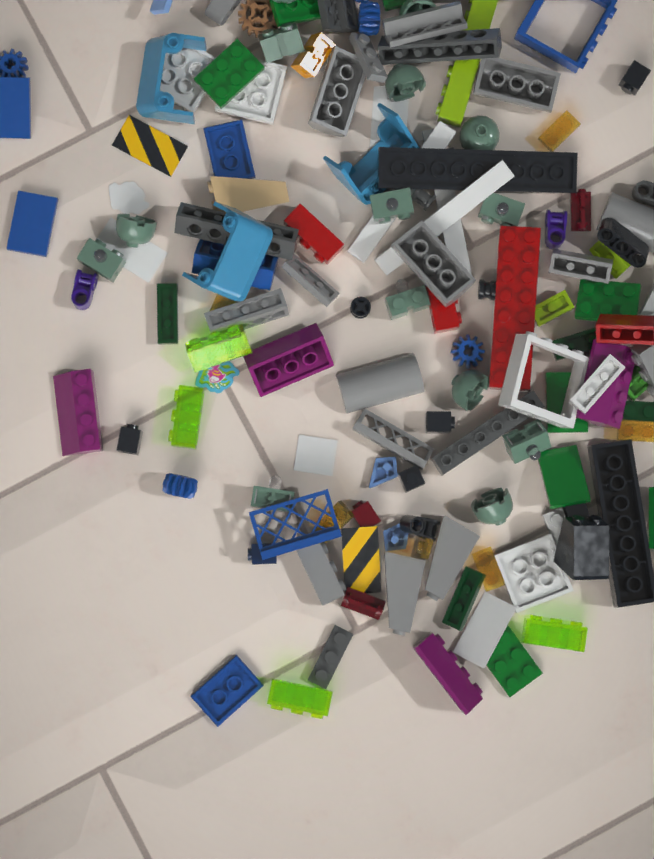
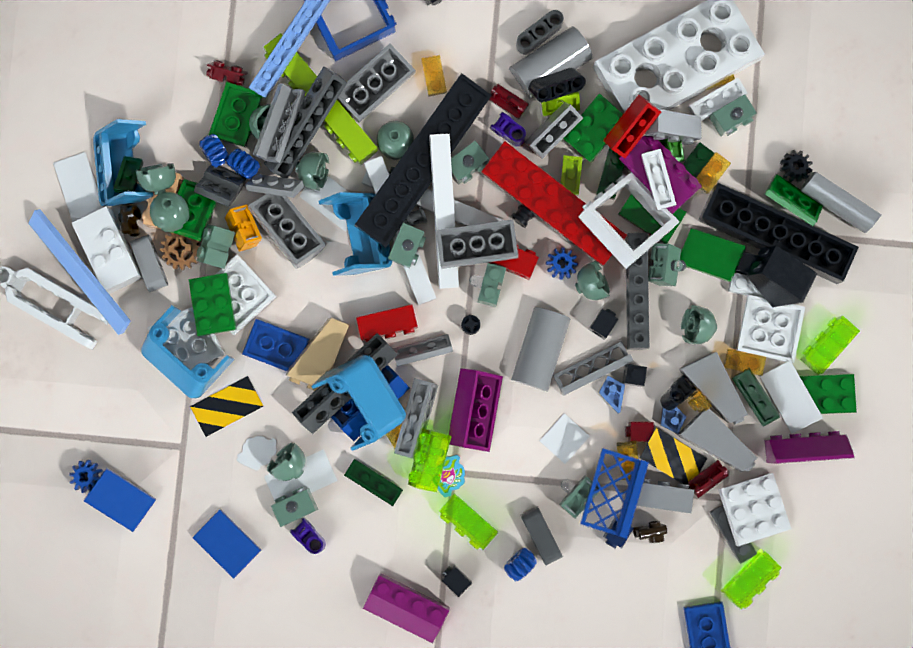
camera: 50 degrees left, 0 degrees up
(216, 489) = (541, 535): none -> dark grey beam
(285, 585) = (654, 532): none -> dark brown plate
(363, 660) = (754, 509): none -> white plate

